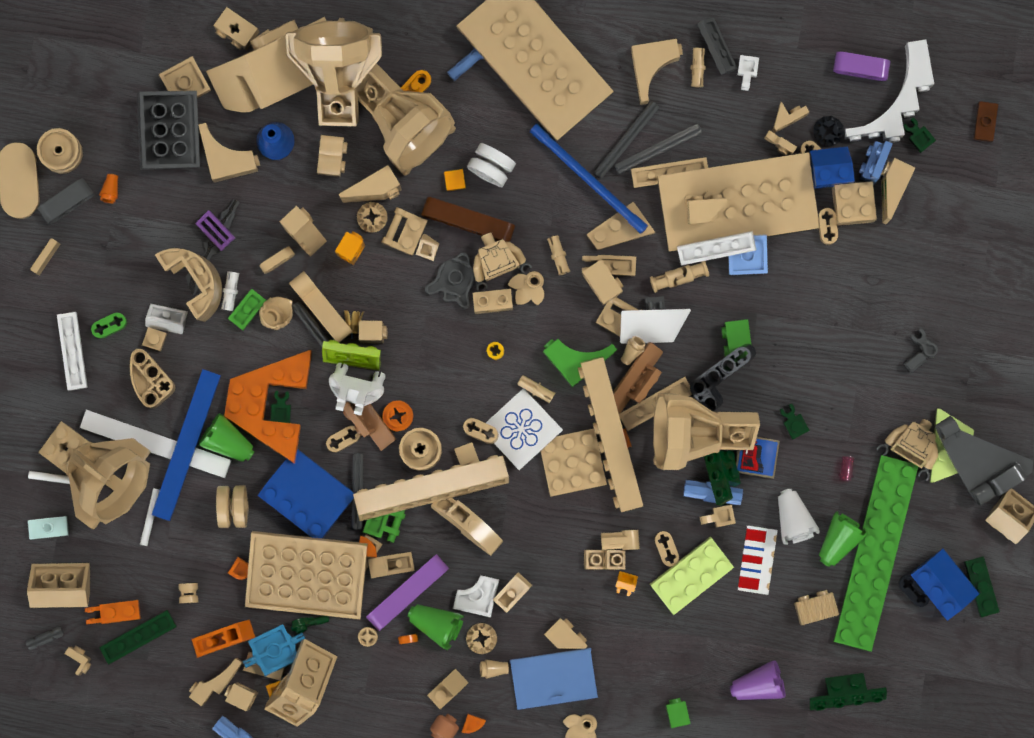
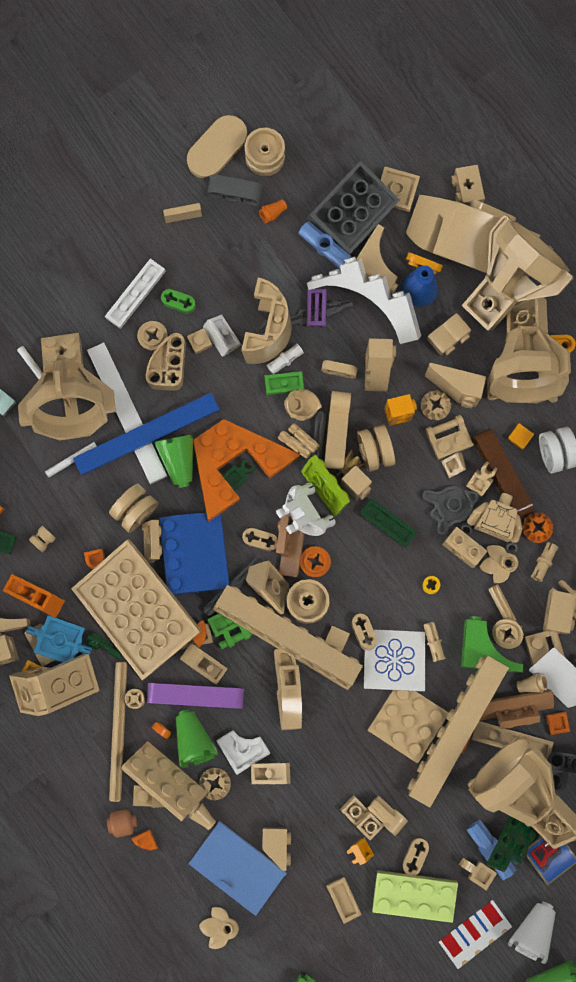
camera: 45 degrees right, 5 degrees down
(109, 364) = (151, 327): none -> tan gear
(161, 178) = (316, 237): none -> medium blue piece
(267, 117) = (415, 260): none -> light orange plate
(272, 520) = (152, 532): none -> tan plate
(273, 174) = (397, 308): none -> white arch
(299, 346) = (294, 444): none -> tan axle
(301, 335) = (303, 437): none -> tan axle
(359, 295) = (376, 448): none -> tan wheel
(380, 672) = (118, 732): none -> tan axle
(381, 464) = (269, 584): none -> tan slope
(422, 337) = (388, 523): none -> dark green plate
(444, 670) = (164, 781): none -> tan plate
(457, 240) = (481, 480): none -> tan plate
(524, 228) = (528, 527): none -> orange gear
(563, 316) = (501, 602): none -> tan axle
(575, 336) = (499, 633): none -> tan gear
(646, 626) = (343, 900): none -> tan tile
(676, 360) = (557, 723): none -> orange tile

